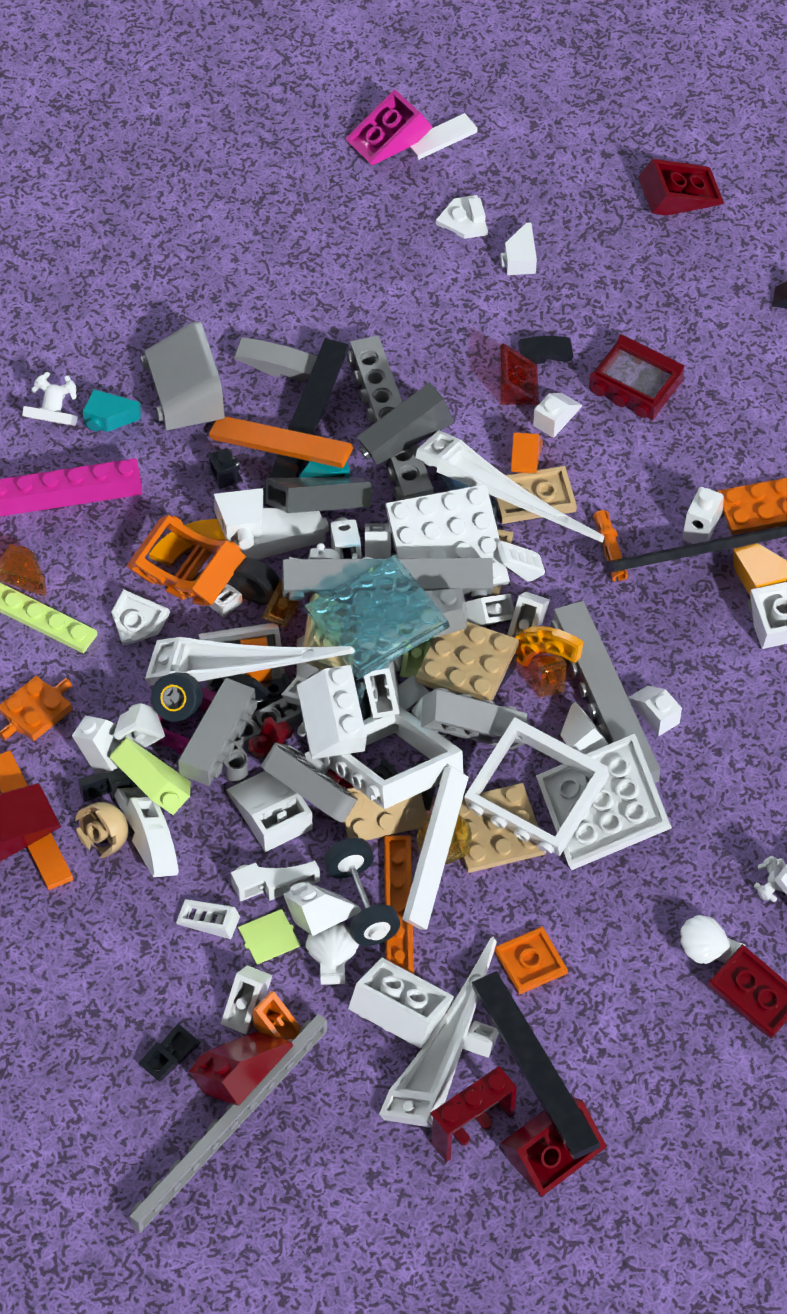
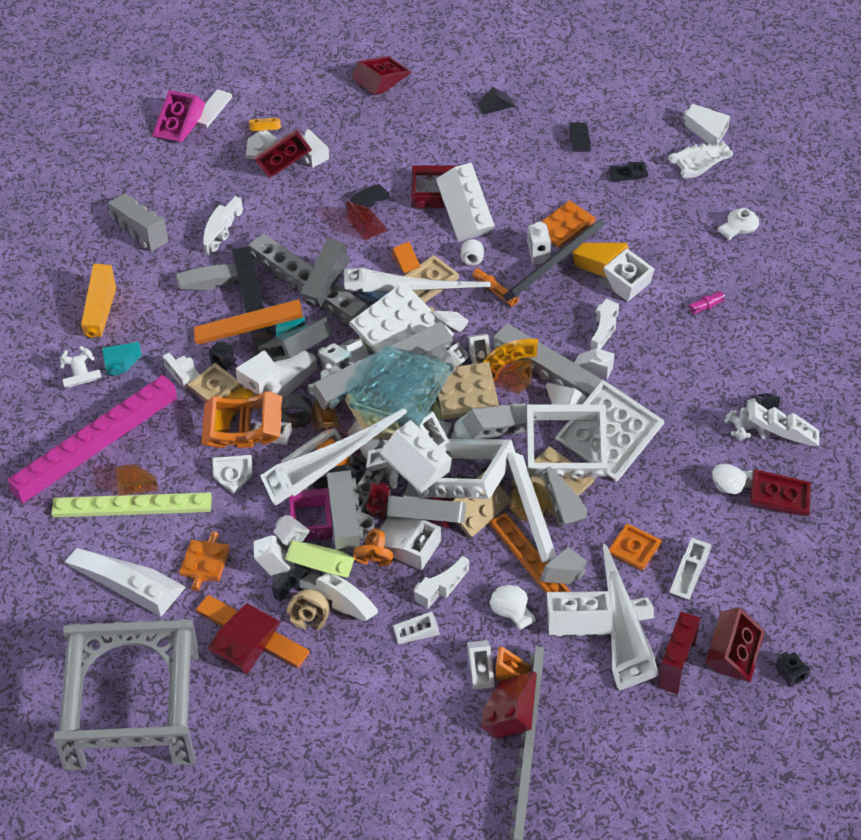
camera: 30 degrees left, 5 degrees down
(131, 327) = (98, 300): none -> light orange slope
(166, 696) = (303, 500): black wheel -> none
(169, 1053) = (455, 725): black slope -> none
(170, 464) = (181, 369): none -> white panel
(185, 378) = (160, 311): light grey windscreen -> none
(190, 498) = (213, 382): none -> tan plate
(221, 797) = (373, 550): none -> orange tile
(247, 247) = (139, 221): none -> light grey wedge
(269, 936) = (463, 619): yellowish green piece -> none
(318, 908) = (486, 584): white slope -> none
(332, 299) = (218, 224): none -> white slope
(376, 922) = (482, 544): black axle -> none
(422, 940) = (564, 568): none -> light grey slope
(474, 240) = (283, 153): none -> dark red slope
(482, 861) = (565, 502): none -> light grey slope
(487, 189) = (264, 124): none -> light orange beam
(535, 1065) = (695, 602): black tile -> none
(554, 413) = (403, 230): white slope -> none
(575, 1021) = (690, 568): none -> white slope
(596, 1216) = (792, 673): none -> black brick
(614, 486) = (472, 252): none -> white head
(647, 416) = (465, 202): none -> white slope
(719, 651) = (606, 317): none -> white slope

